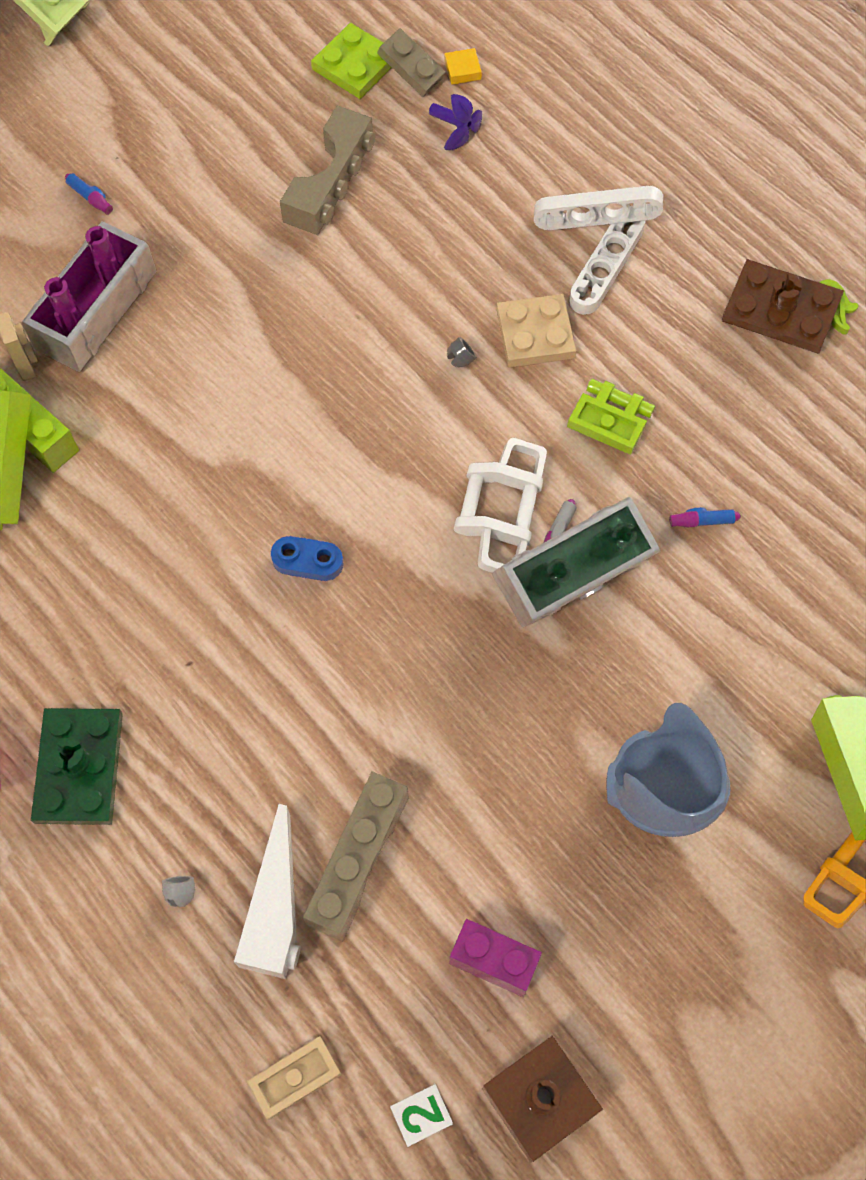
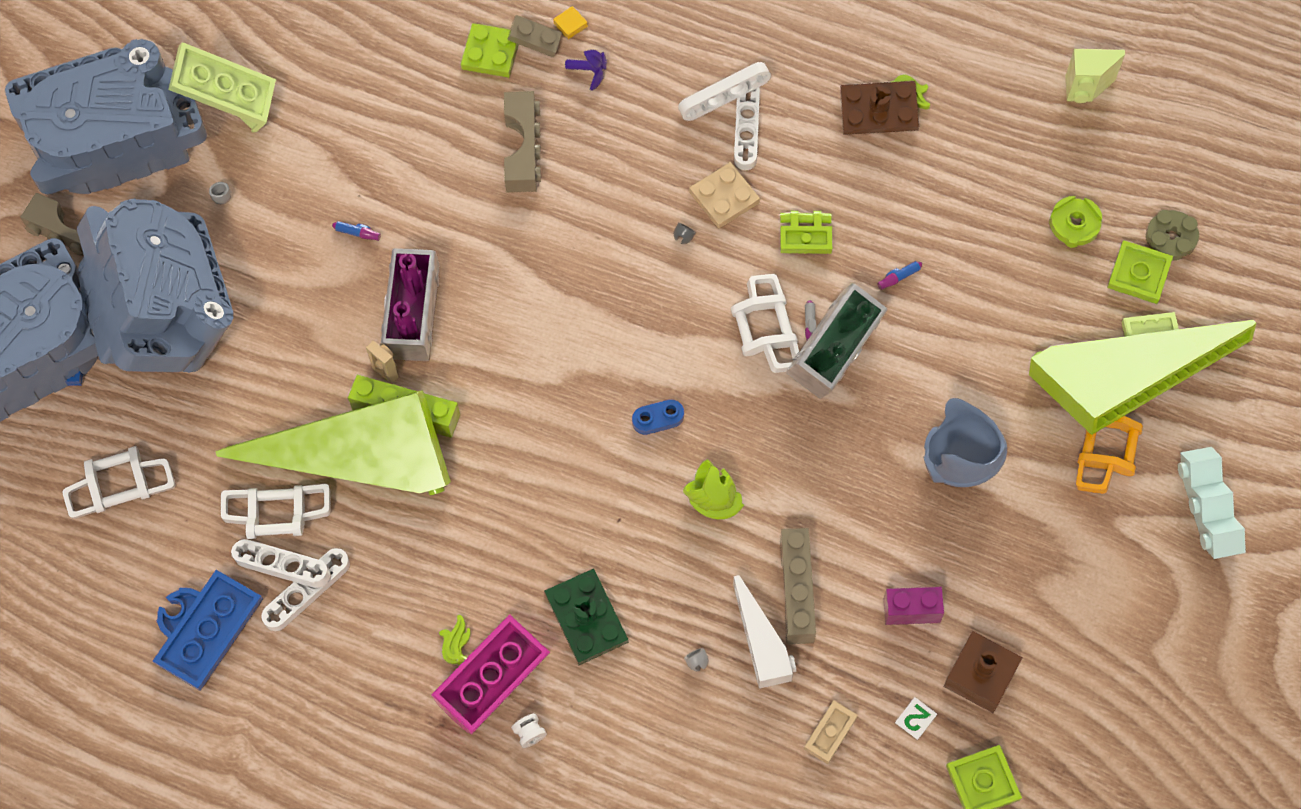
camera: 25 degrees left, 0 degrees up
(317, 685) = (713, 493): none -> lime helmet

